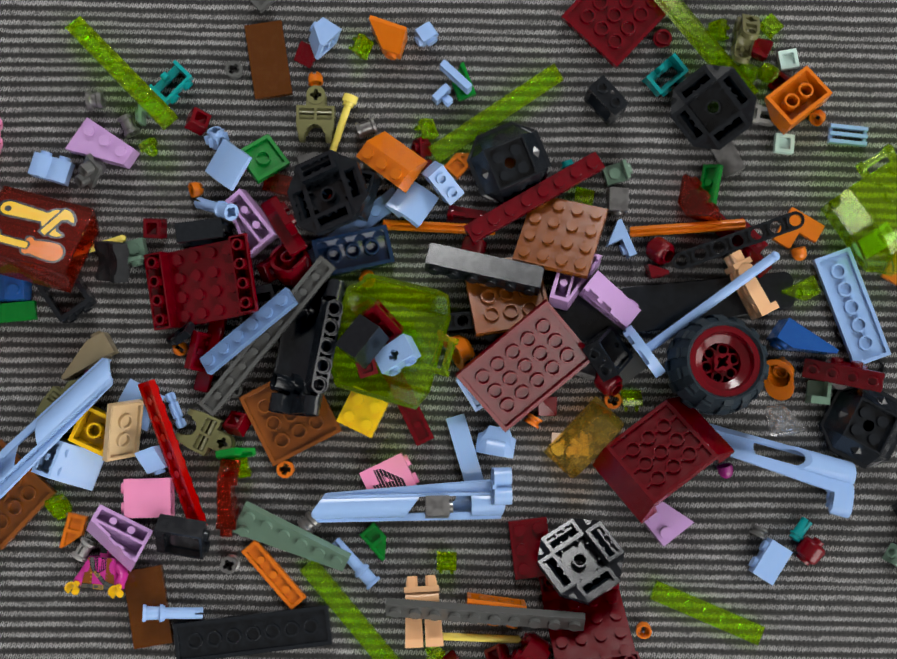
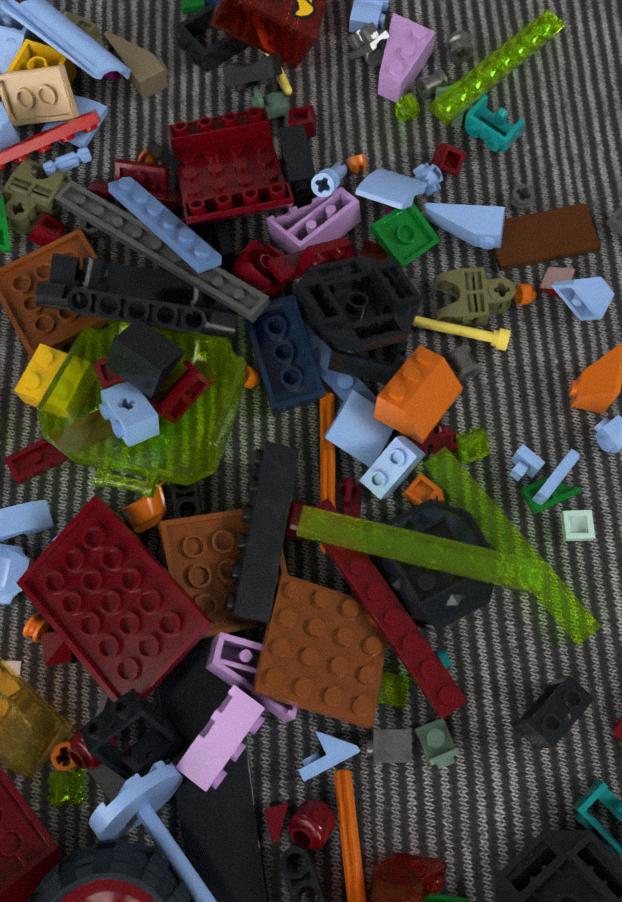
camera: 90 degrees right, 15 degrees down
(259, 108) = (472, 223): none -> light blue slope
(361, 46) = (581, 349): clear neon green tile -> none
(486, 68) = (577, 525): none -> light aqua plate
(506, 168) = (422, 550): none -> clear neon green plate

